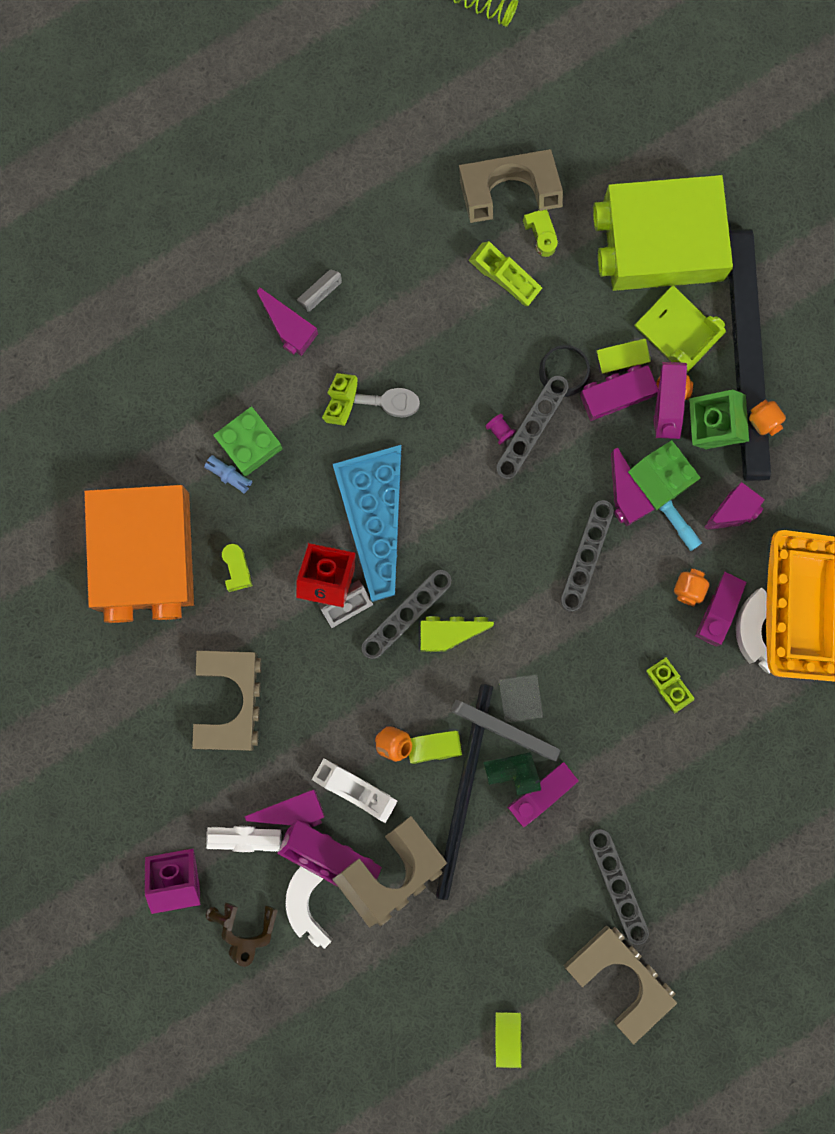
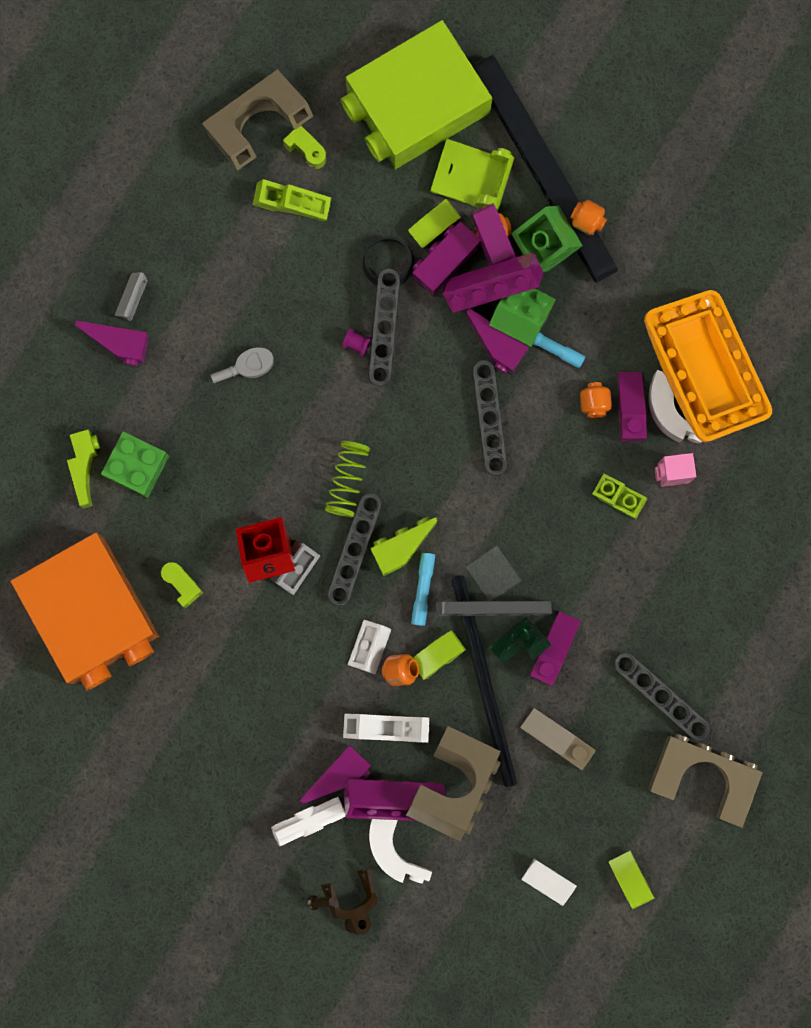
camera: 25 degrees left, 0 degrees up
(171, 881) = (263, 891): magenta slope -> none
(210, 406) = (85, 449): none -> lime slope
(228, 474) = (131, 503): medium blue pin -> none
(240, 732) = (232, 671): dark tan arch -> none
(342, 398) = (199, 380): lime slope -> none
(372, 505) = (273, 464): dark azure wing -> none
(376, 708) = (369, 646): none -> white slope
(432, 1003) = (548, 882): none -> white slope
(455, 526) = (356, 448): none -> lime piece
(459, 667) = (425, 573): none -> medium azure piece
(505, 878) = (558, 739): none -> dark tan slope
(651, 435) = (493, 282): none -> magenta brick
(733, 687) = (676, 470): none -> bright pink brick
(737, 508) = (601, 310): magenta slope -> none

